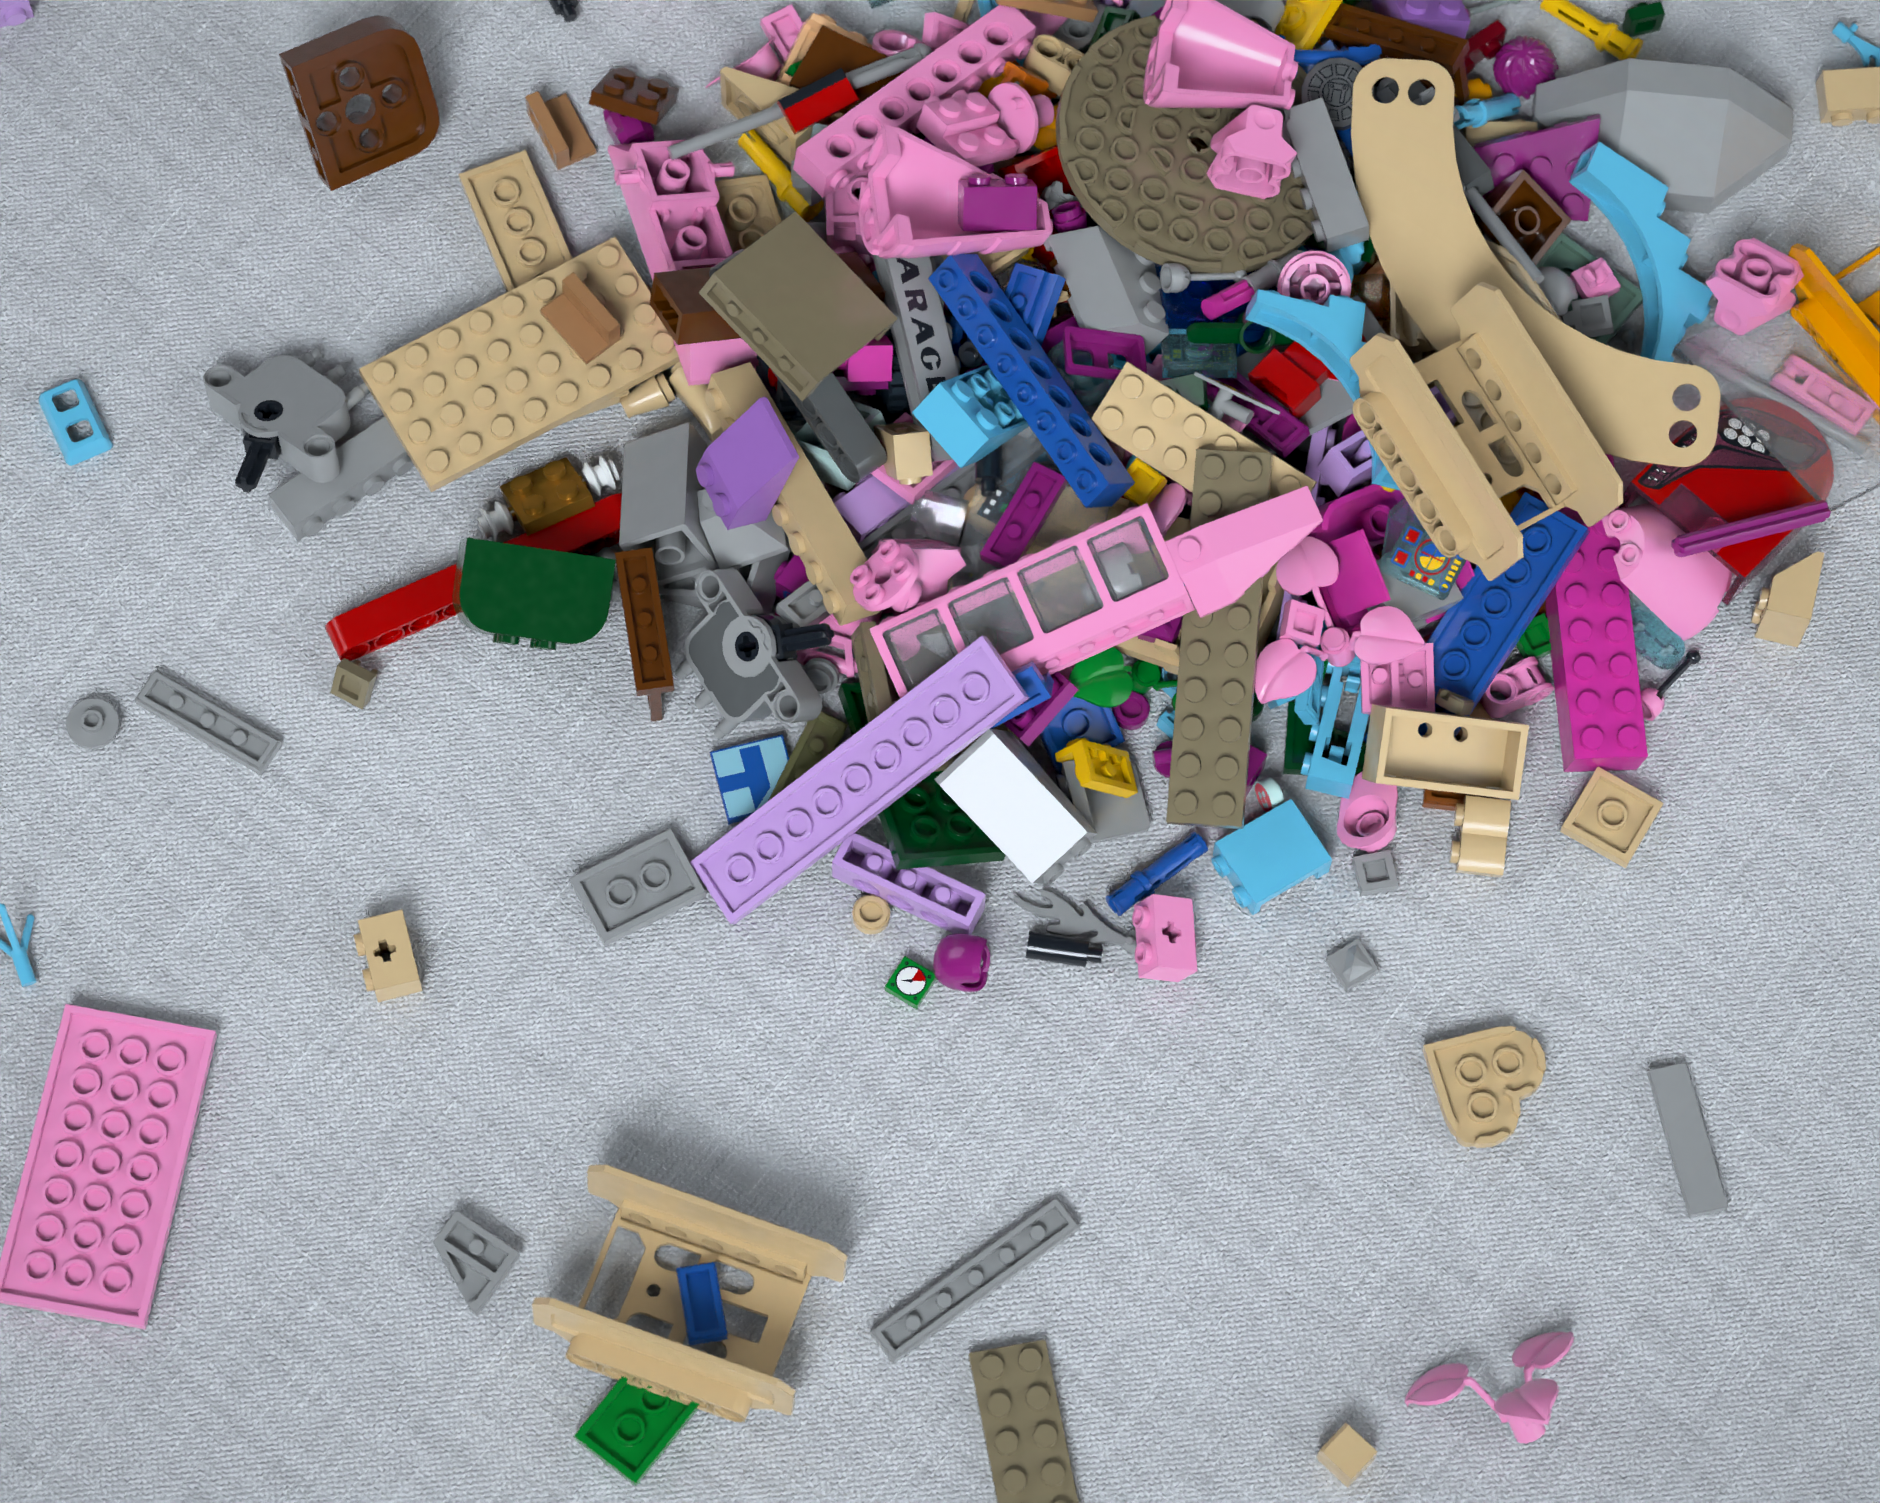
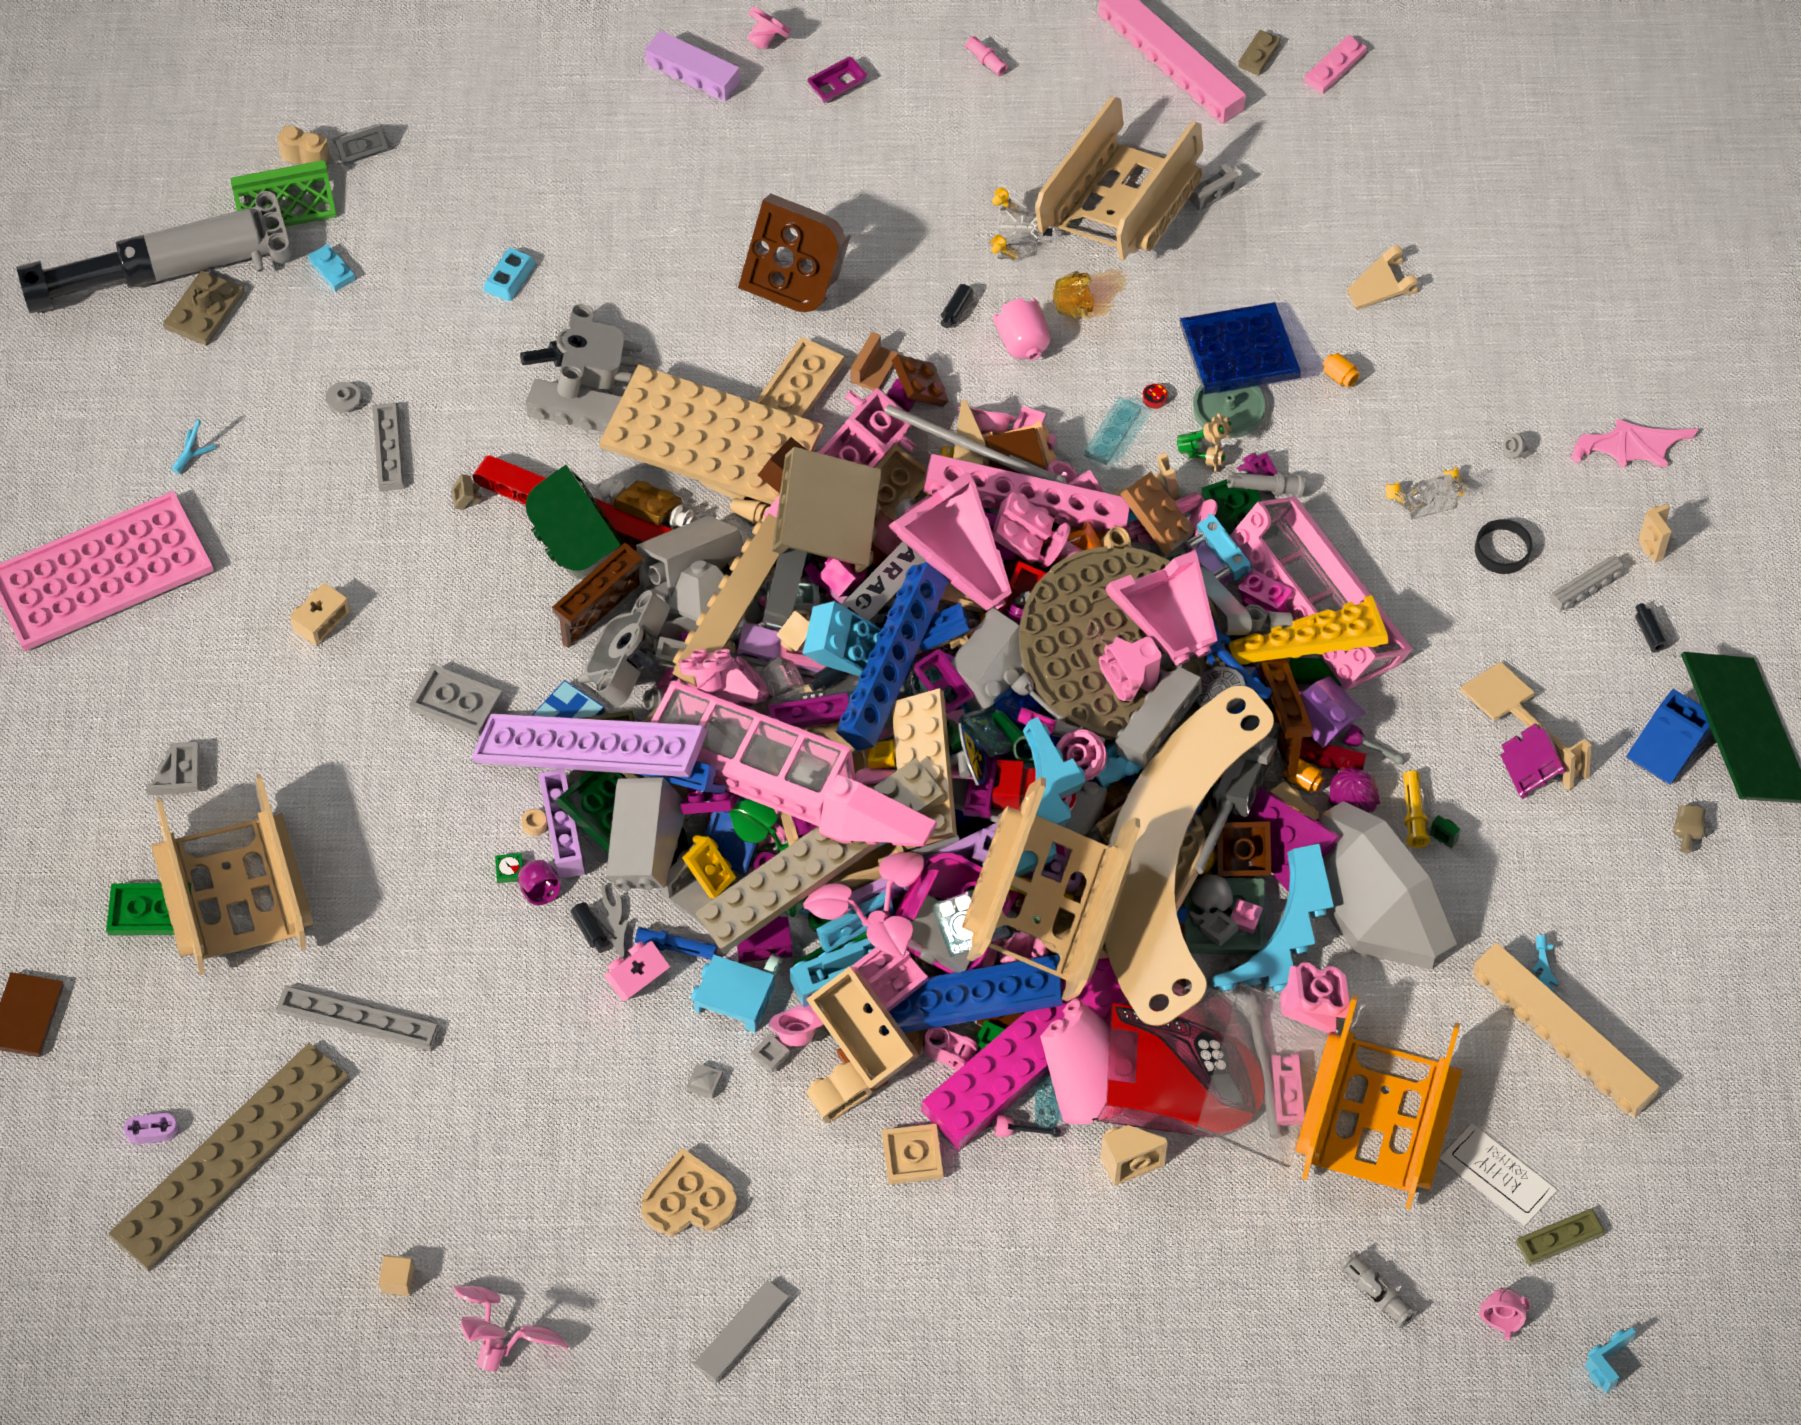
camera: 55 degrees right, 10 degrees down
(582, 320) = (754, 439): medium nougat panel -> none
(701, 1303) = (234, 892): blue tile -> none
(748, 466) = (716, 560): medium lavender slope -> none
(818, 101) = (979, 451): red tile -> none
(997, 203) = (981, 564): magenta brick -> none
(1302, 623) = (867, 891): bright pink tile -> none
(1454, 702) = (900, 1013): dark tan tile -> none
(1480, 112) = (1290, 779): medium azure pin -> none
(1750, 528) = (1139, 1086): magenta axle -> none

